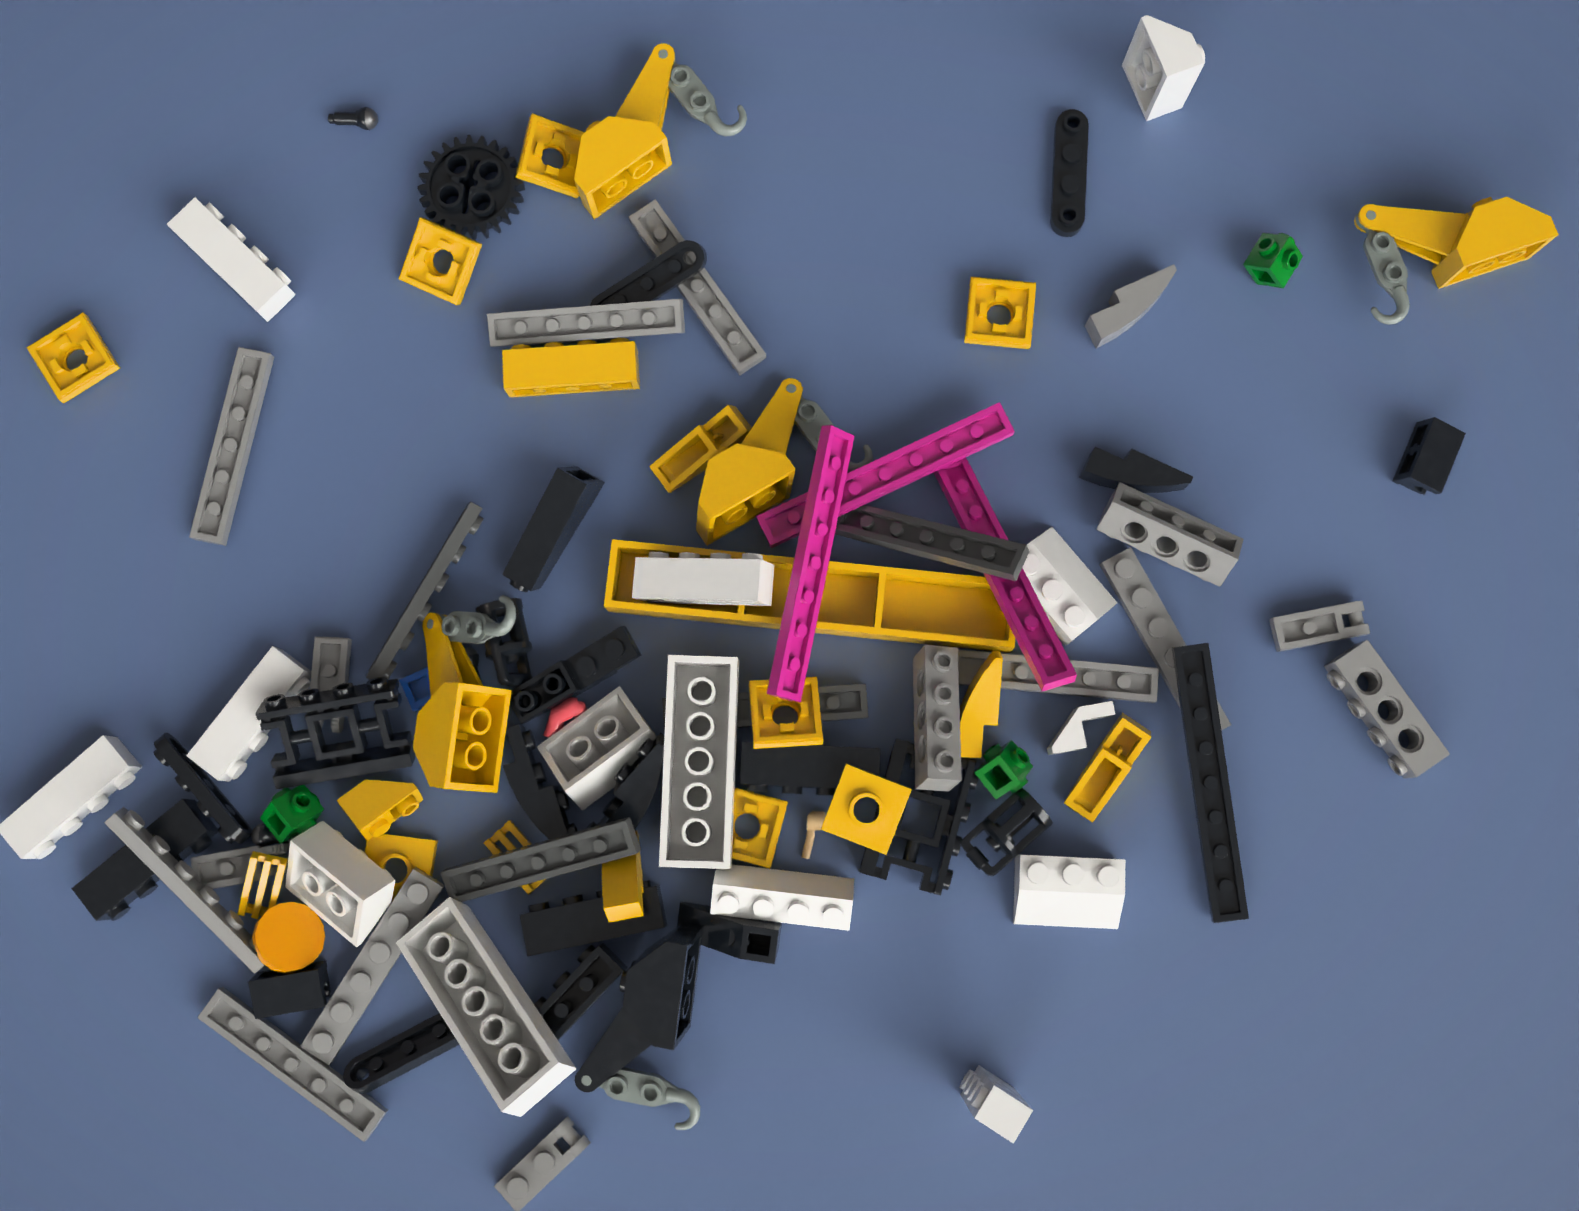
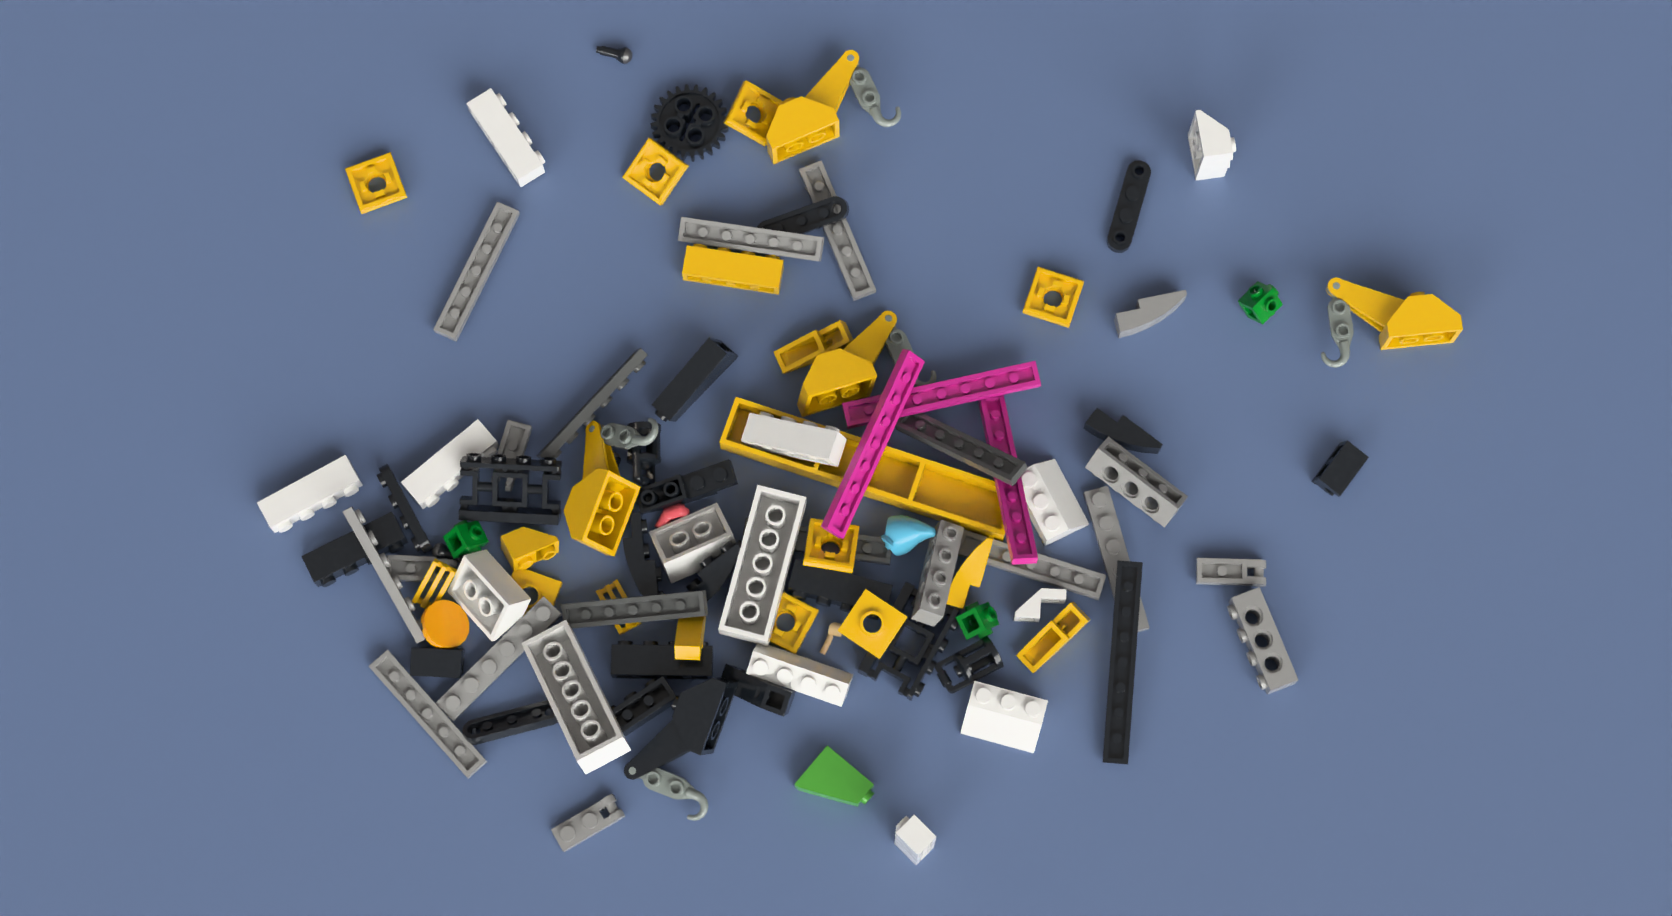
camera: 10 degrees right, 5 degrees down
(417, 688) = (572, 472): blue plate -> none
(863, 1030) = (835, 779): none -> bright green slope
(881, 673) = (905, 534): none -> medium azure hat

